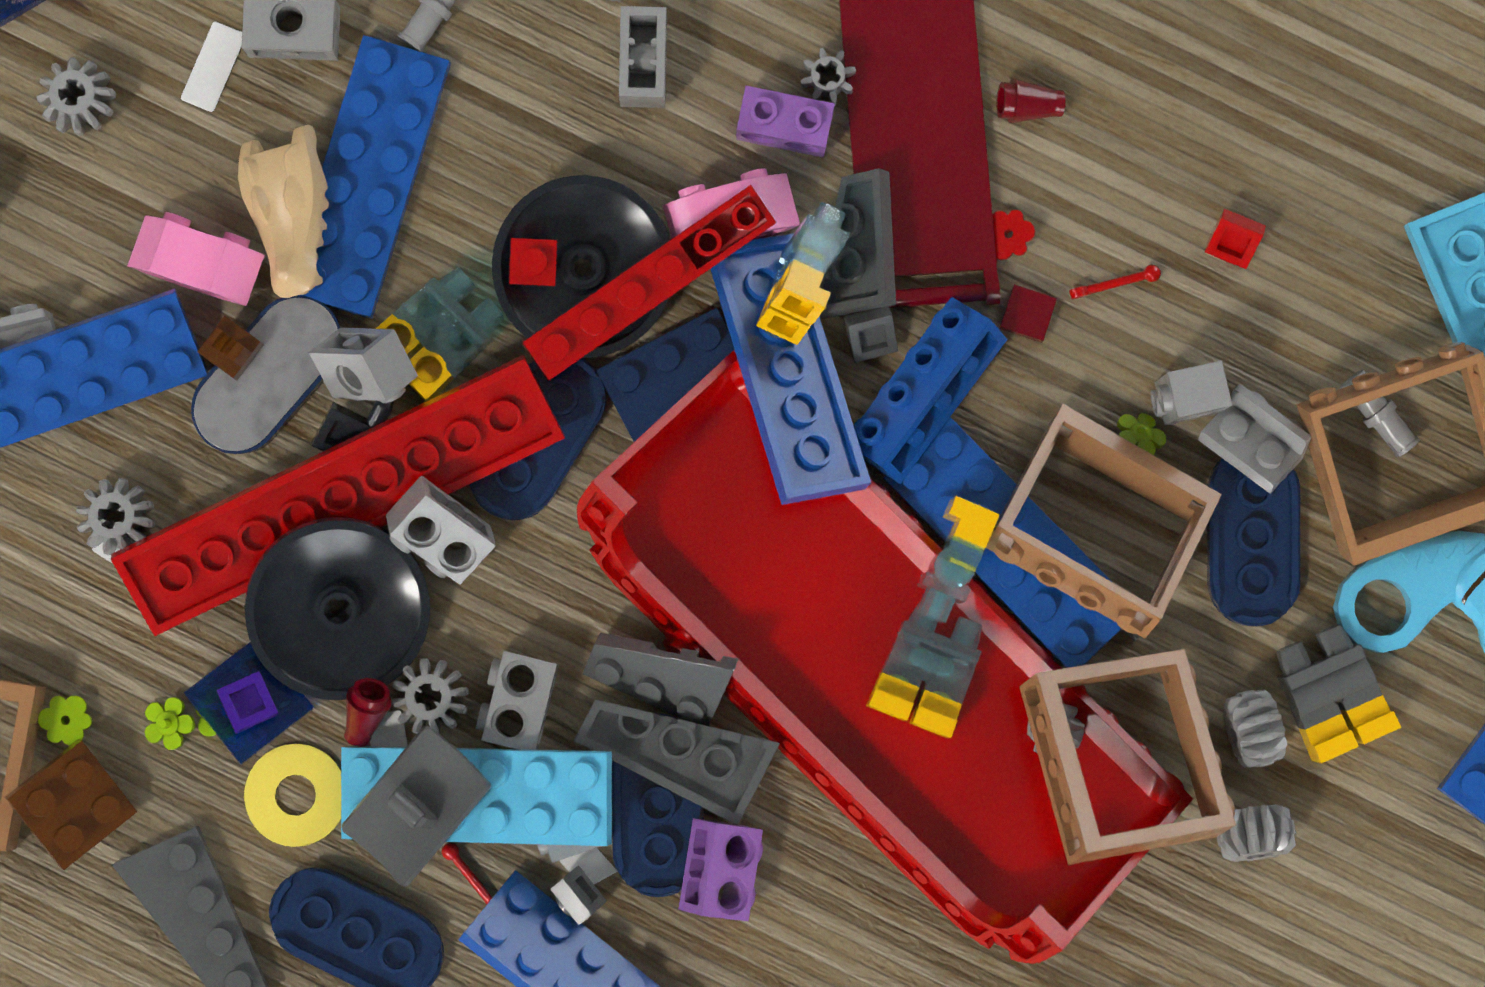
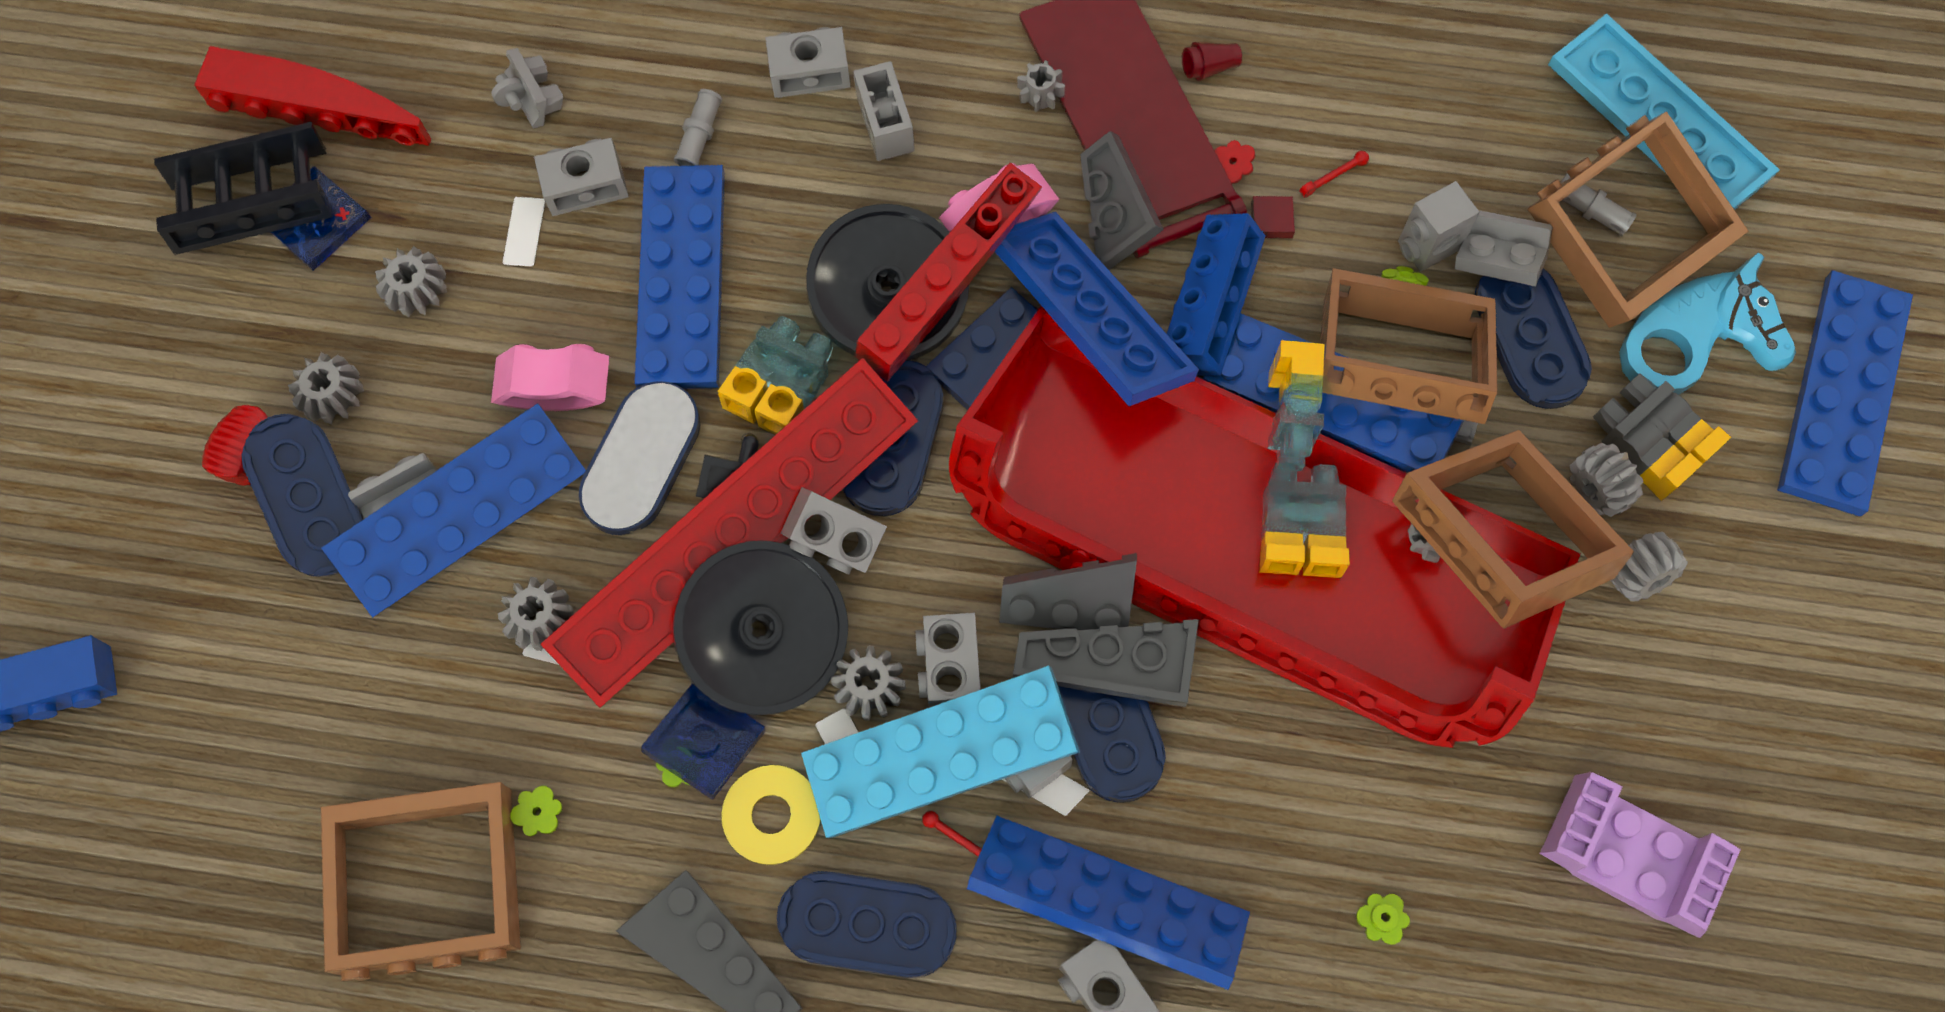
camera: 10 degrees left, 15 degrees down
(71, 804) = (561, 883): reddish brown plate -> none
(168, 723) = (634, 785): lime plant -> none
(230, 348) = (600, 440): reddish brown tile -> none
(247, 702) = (702, 734): dark purple plate -> none
(286, 202) = (616, 311): tan animal -> none
(364, 364) = (723, 411): light grey brick -> none
(365, 709) = (813, 710): dark red cone -> none
(416, 805) = (887, 773): dark grey shield -> none
(533, 262) = (844, 285): red plate -> none
(577, 895) = (1061, 819): dark grey plate -> none
(710, 869) = (1185, 750): medium lavender brick -> none
(784, 121) = (1018, 127): medium lavender brick -> none
(796, 292) = (1079, 224): hips -> none
(871, 334) = (1149, 267): dark grey plate -> none
(1235, 239) = (1419, 108): red plate -> none

